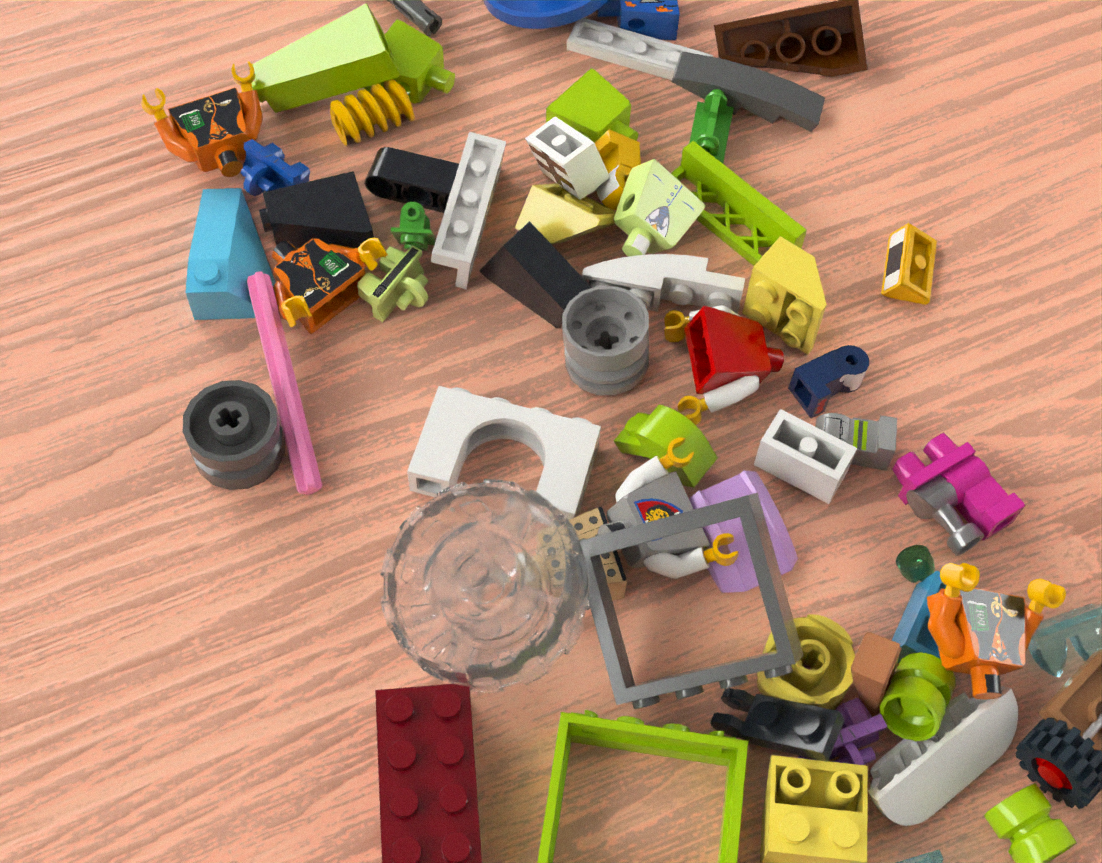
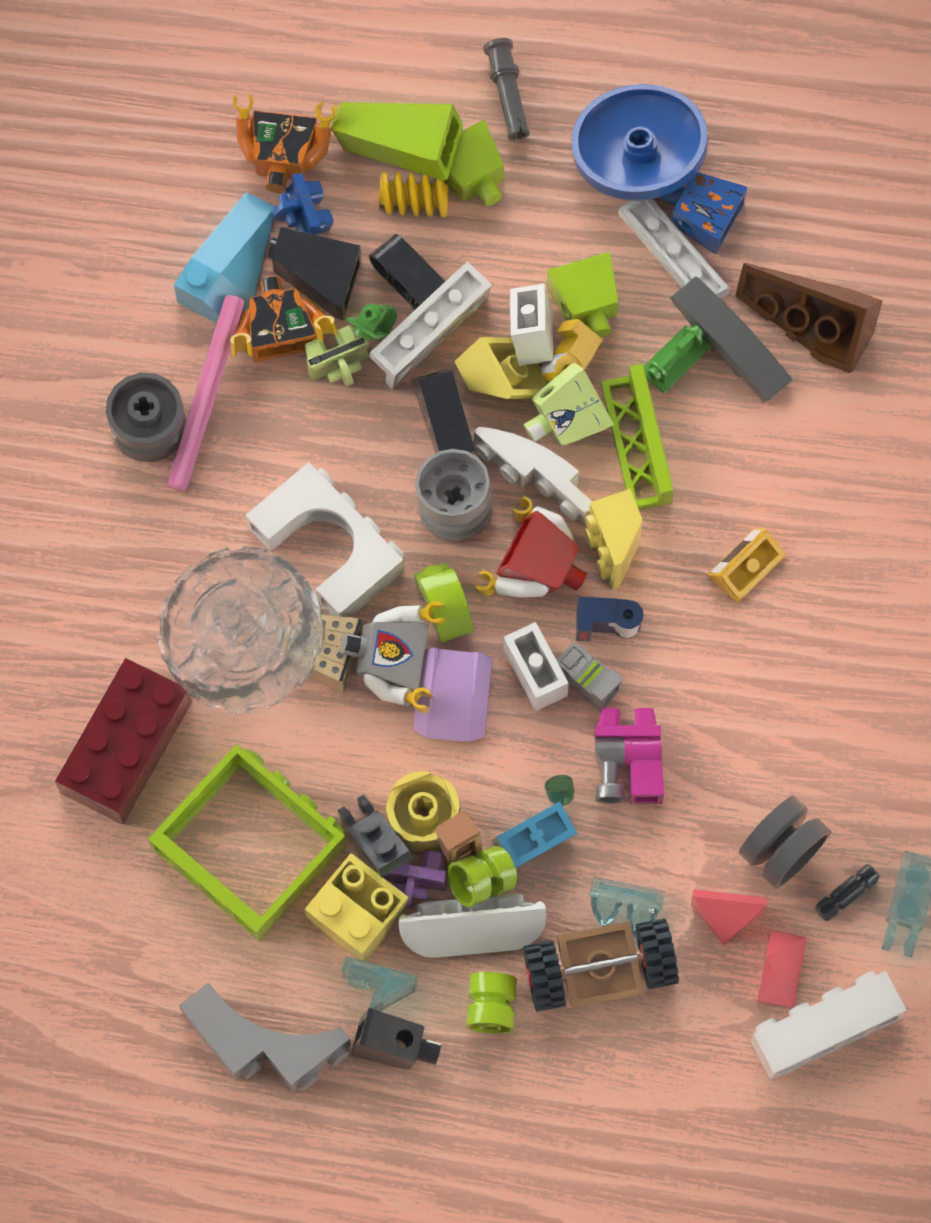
camera: 35 degrees right, 10 degrees up
(728, 673) = (413, 734): dark grey window -> none
(985, 629) = (552, 858): torso -> none

